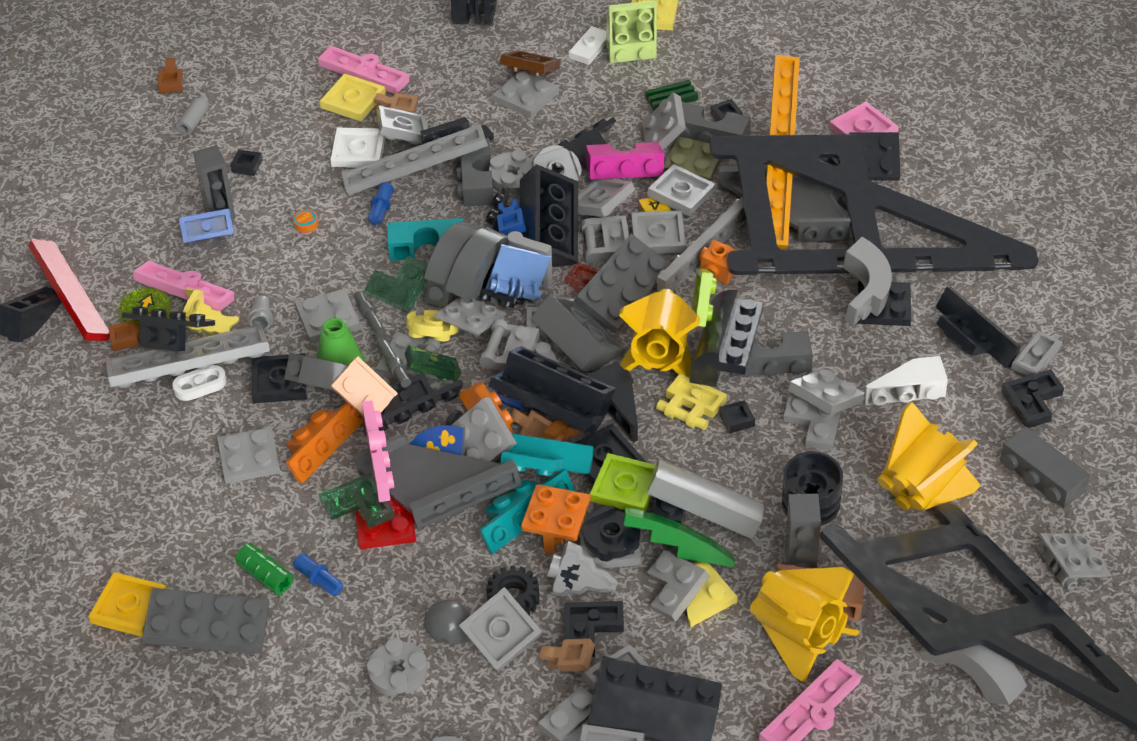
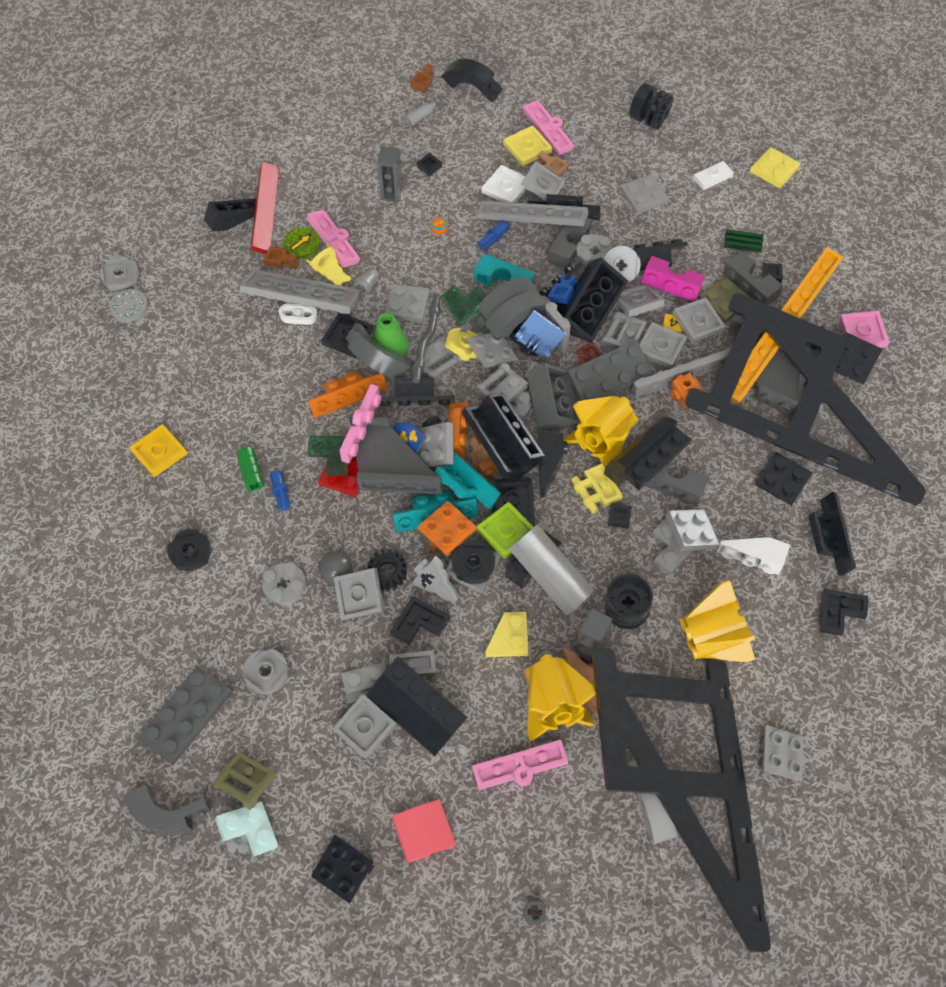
camera: 30 degrees right, 15 degrees up
(165, 330) = (297, 264): black bracket -> none
(206, 225) = (371, 201): brick -> none
(206, 621) = (193, 487): dark grey plate -> none
(230, 45) = (475, 74): none -> black arch
(248, 455) = (295, 381): light grey plate -> none
(255, 703) = (181, 542): none -> black plate
(362, 384) = (384, 372): light nougat plate -> none
(432, 363) = (445, 373): clear green plate -> none
(533, 62) = (659, 171): reddish brown plate -> none
(572, 656) = (389, 638): medium nougat plate -> none
(632, 31) = (742, 180): yellowish green slope -> none
(665, 122) = (719, 262): light grey plate -> none
(681, 584) = (498, 622): light grey plate -> none
(688, 542) = (510, 585): green slope -> none
(704, 286) = (648, 413): plate -> none
(874, 272) = (786, 450): light grey arch -> none
(1036, 354) = (866, 577): light grey plate -> none
(1044, 467) = (808, 672): dark grey brick -> none

